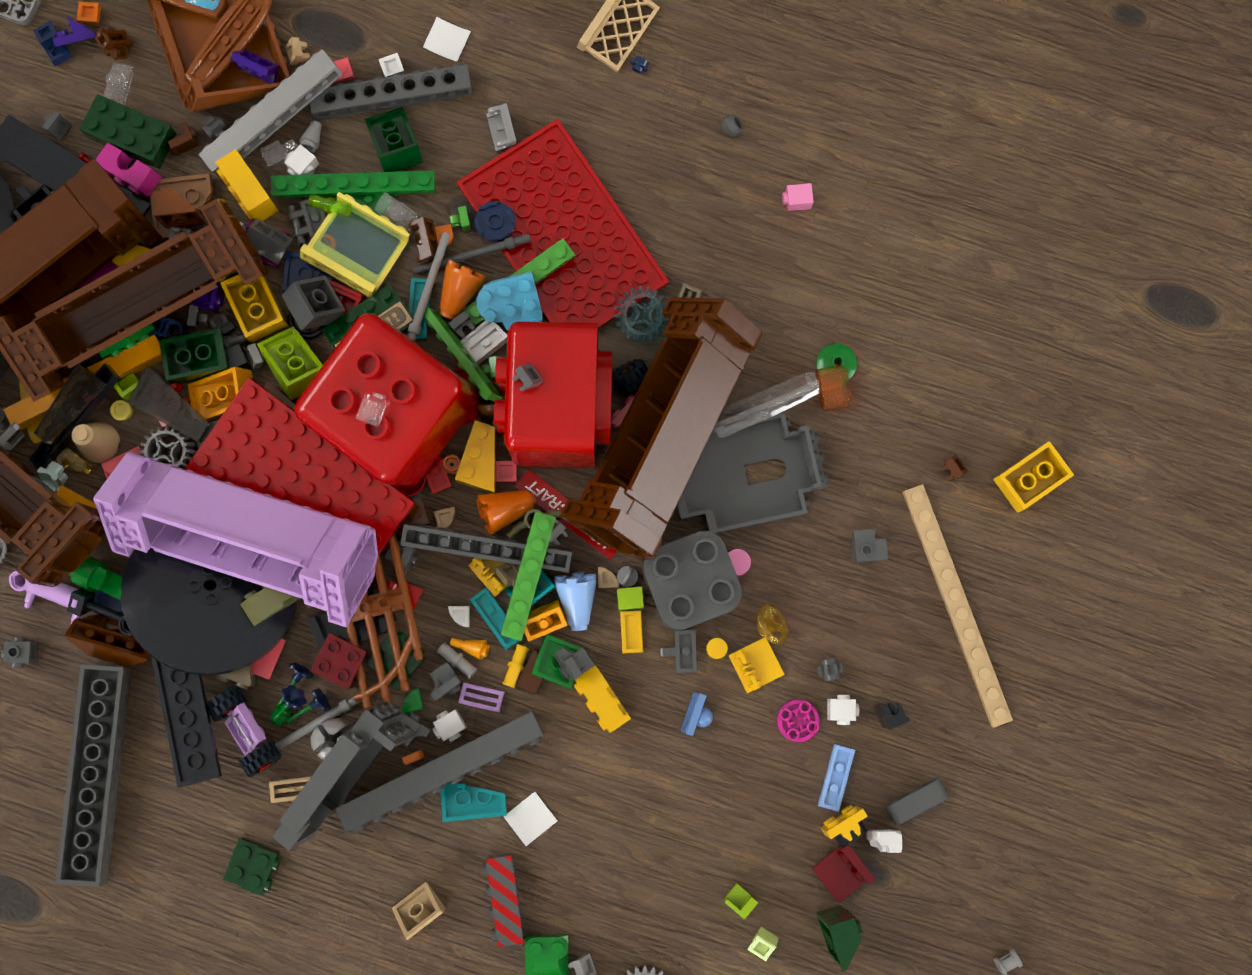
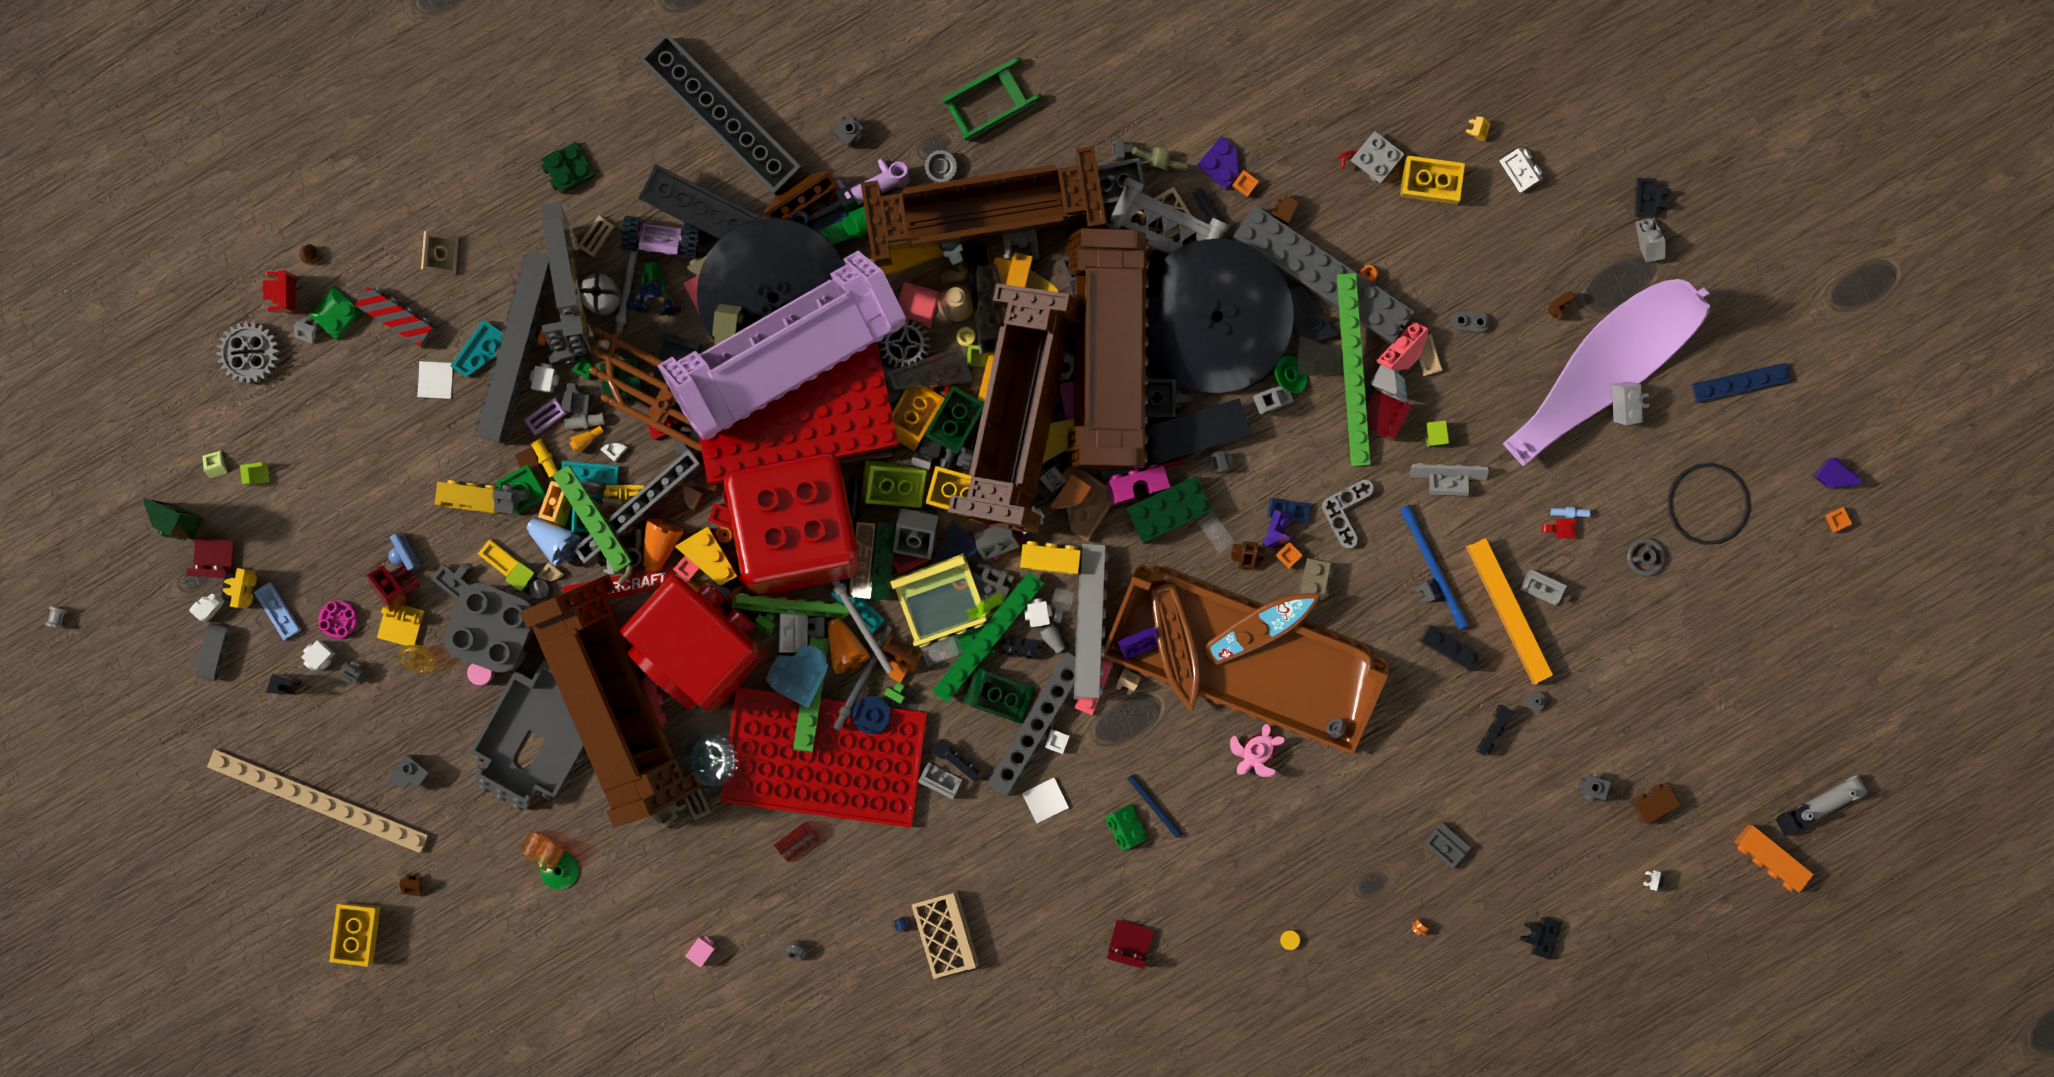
camera: 140 degrees right, 5 degrees up
(185, 142) = (1129, 540): reddish brown bracket -> none
(213, 126) = (1118, 574): dark grey gear -> none
(336, 147) = (1013, 648): none -> black hinge
(339, 661) = (651, 340): dark red bracket -> none
(372, 408) = (778, 507): clear bracket -> none
(475, 144) = (942, 749): none -> black plate
(528, 376) = (703, 629): tile -> none
(629, 375) = (673, 715): black wheel -> none
(647, 199) = (796, 842): none -> clear red brick
(716, 648) = (435, 607): yellow tile -> none
(736, 697) = (386, 586): none -> dark red brick
(766, 403) = (570, 794): clear piece -> none

